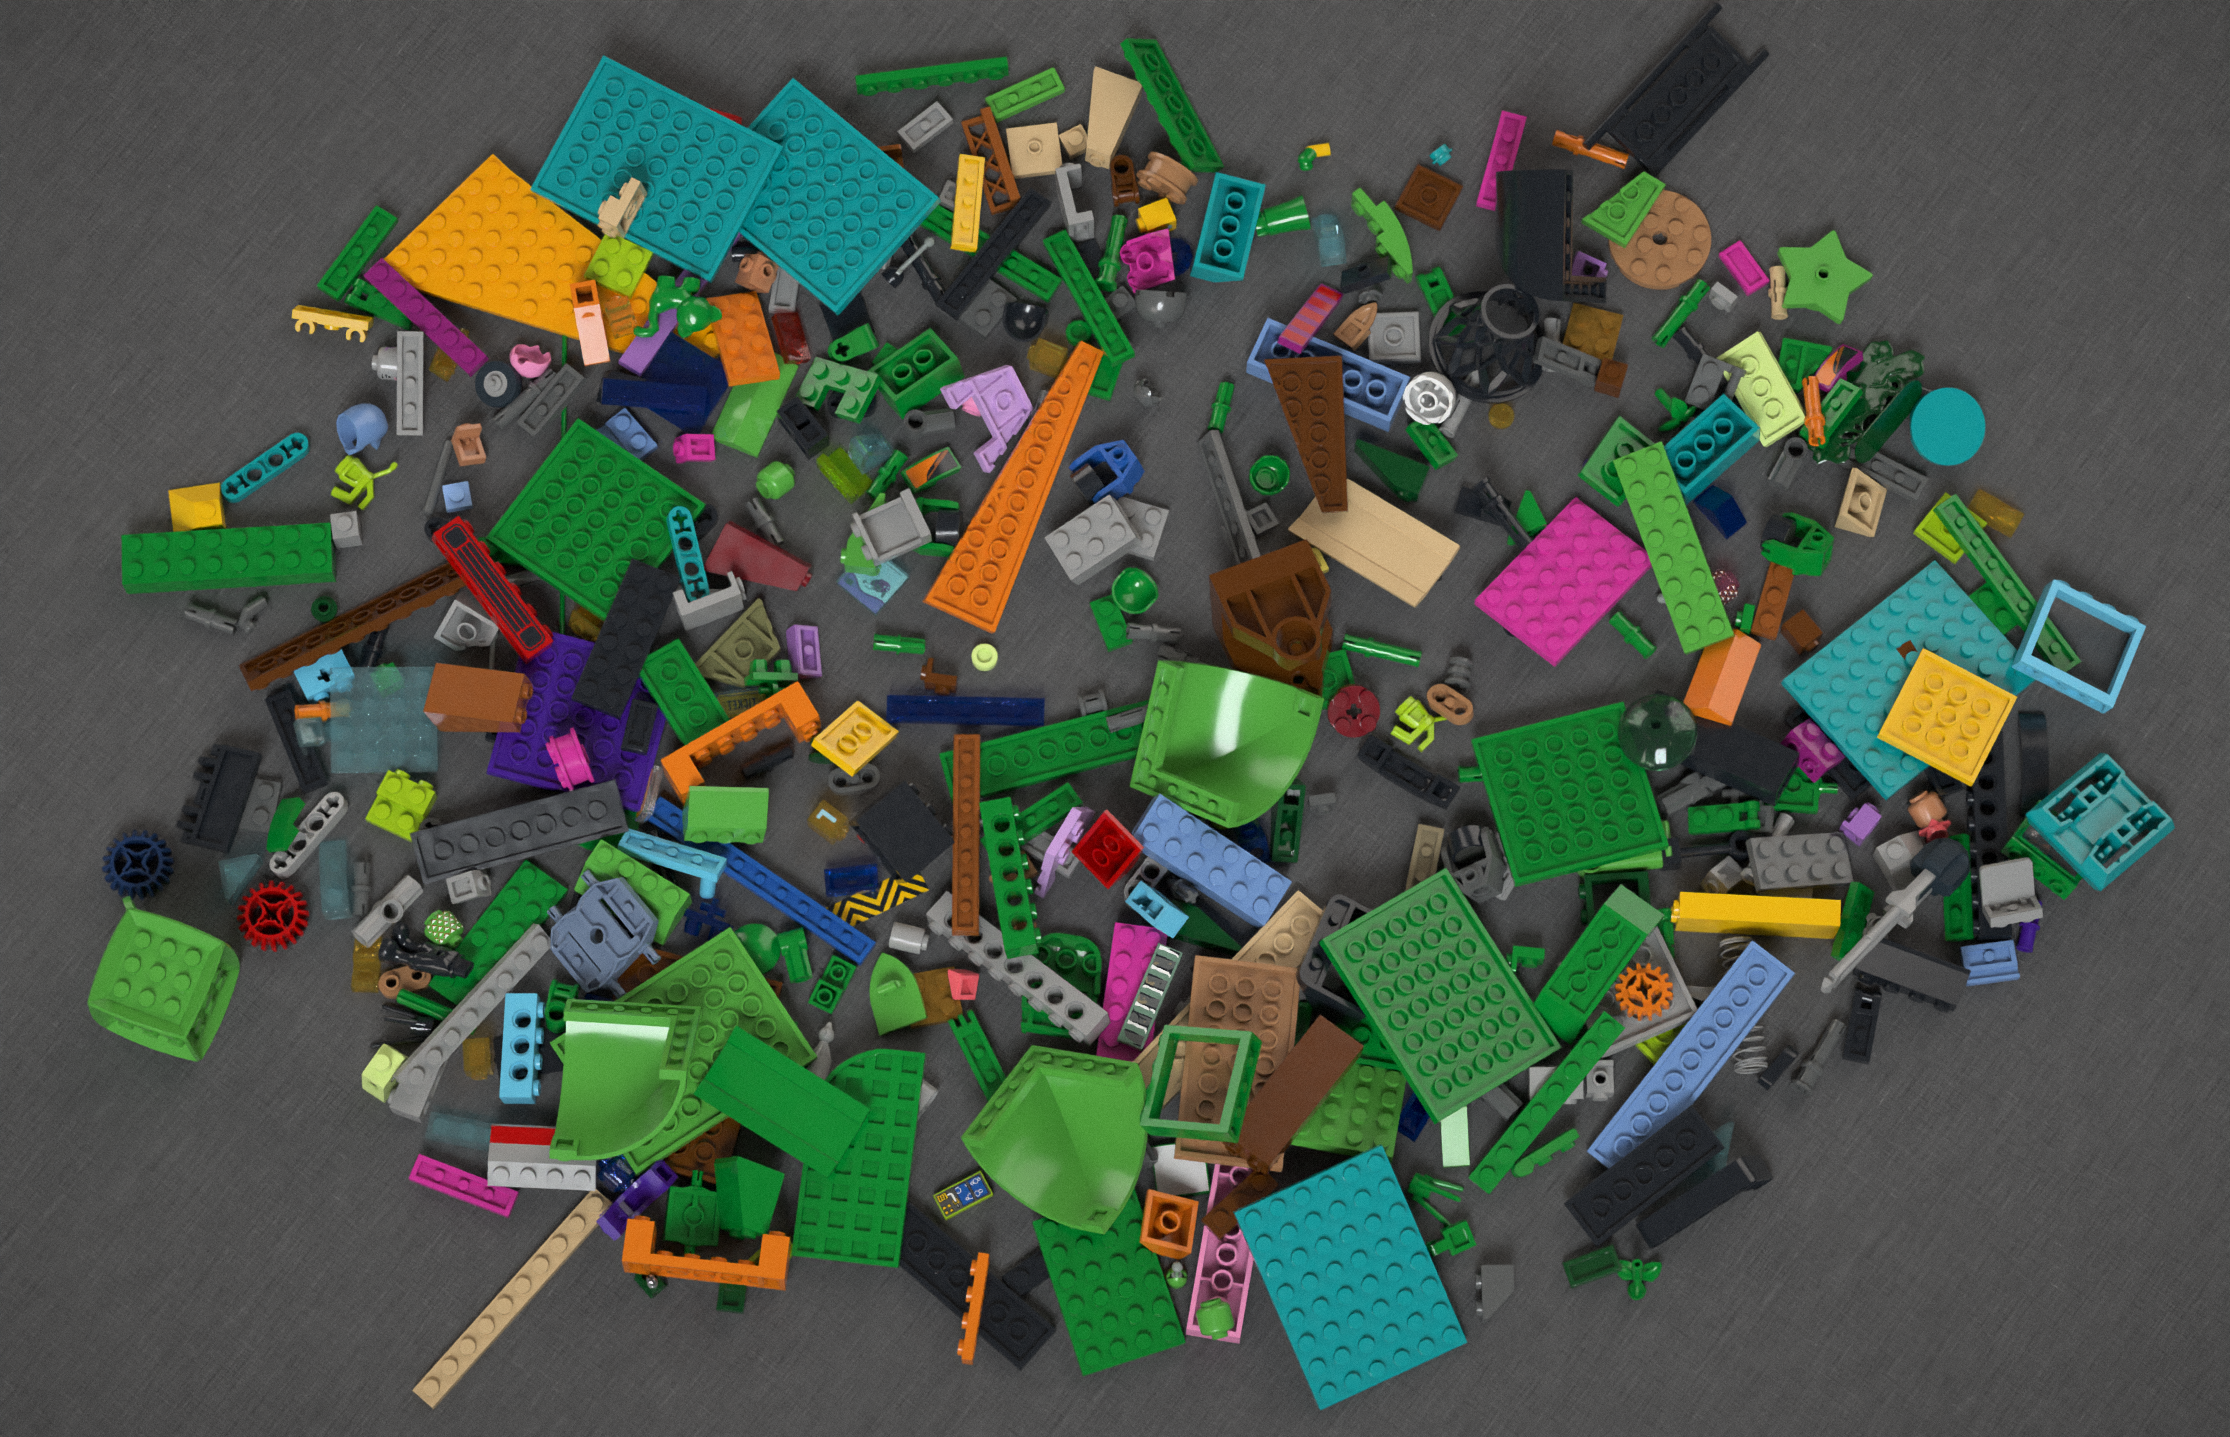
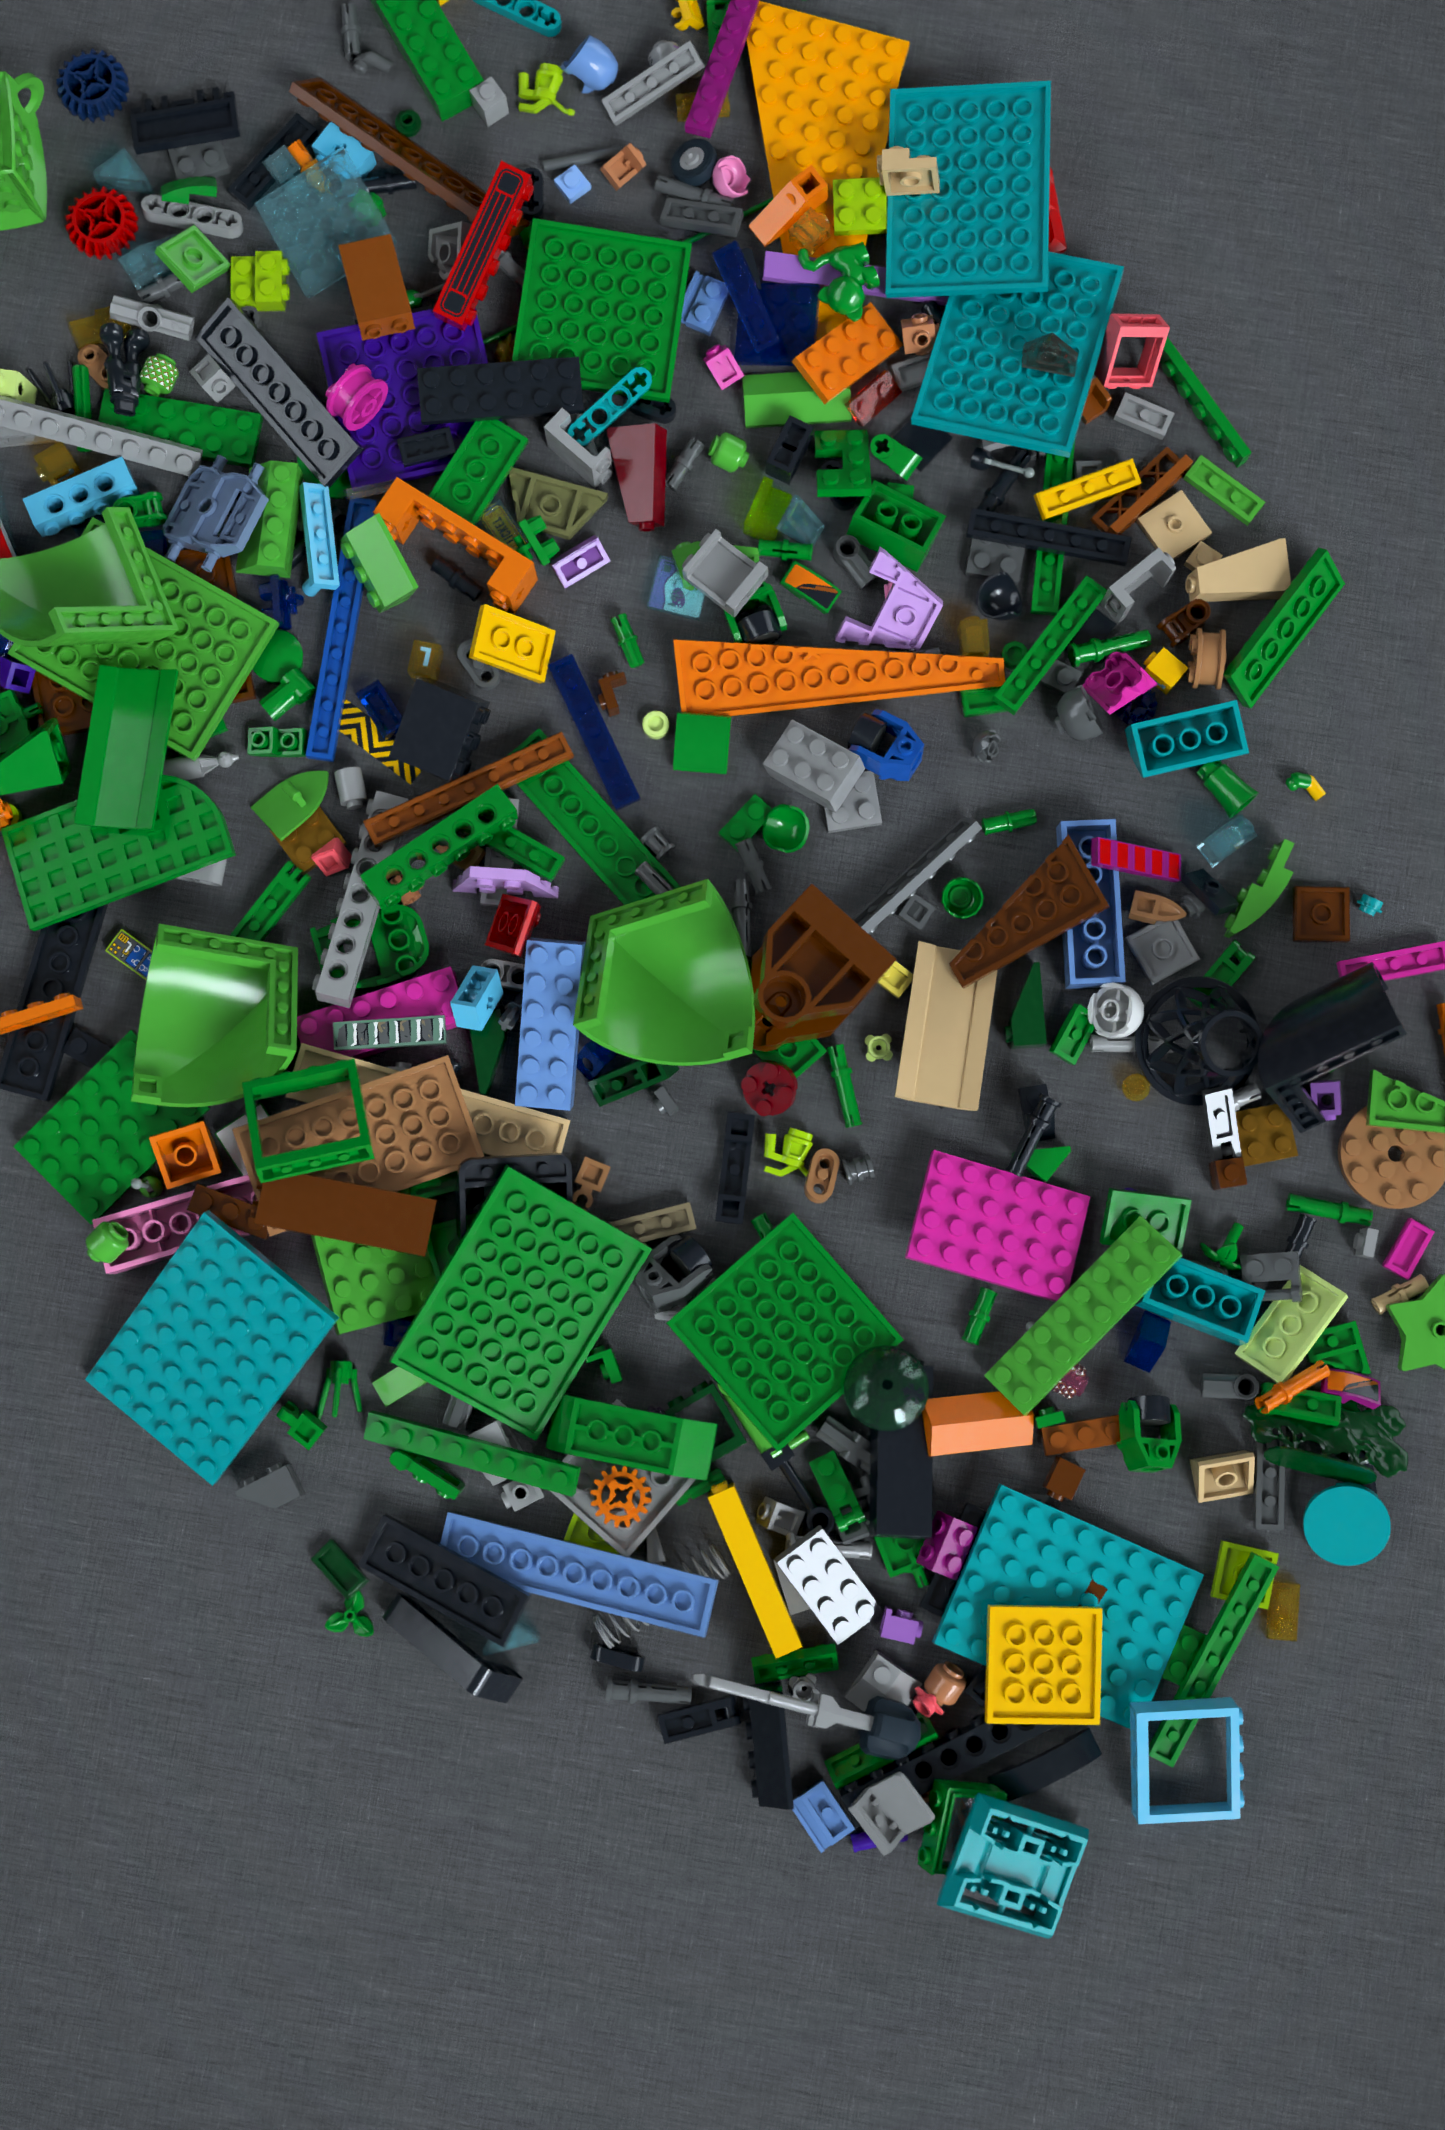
camera: 65 degrees right, 10 degrees up
(353, 849) = (193, 258): none -> bright green plate
(847, 172) = (1050, 355): none -> clear smoke plate
(863, 84) = (1132, 325): none -> coral window
(1022, 624) = (702, 743): none -> green slope
(1358, 892) = (591, 1177): none -> medium nougat plate
(1359, 600) = (873, 1054): none -> yellowish green plate

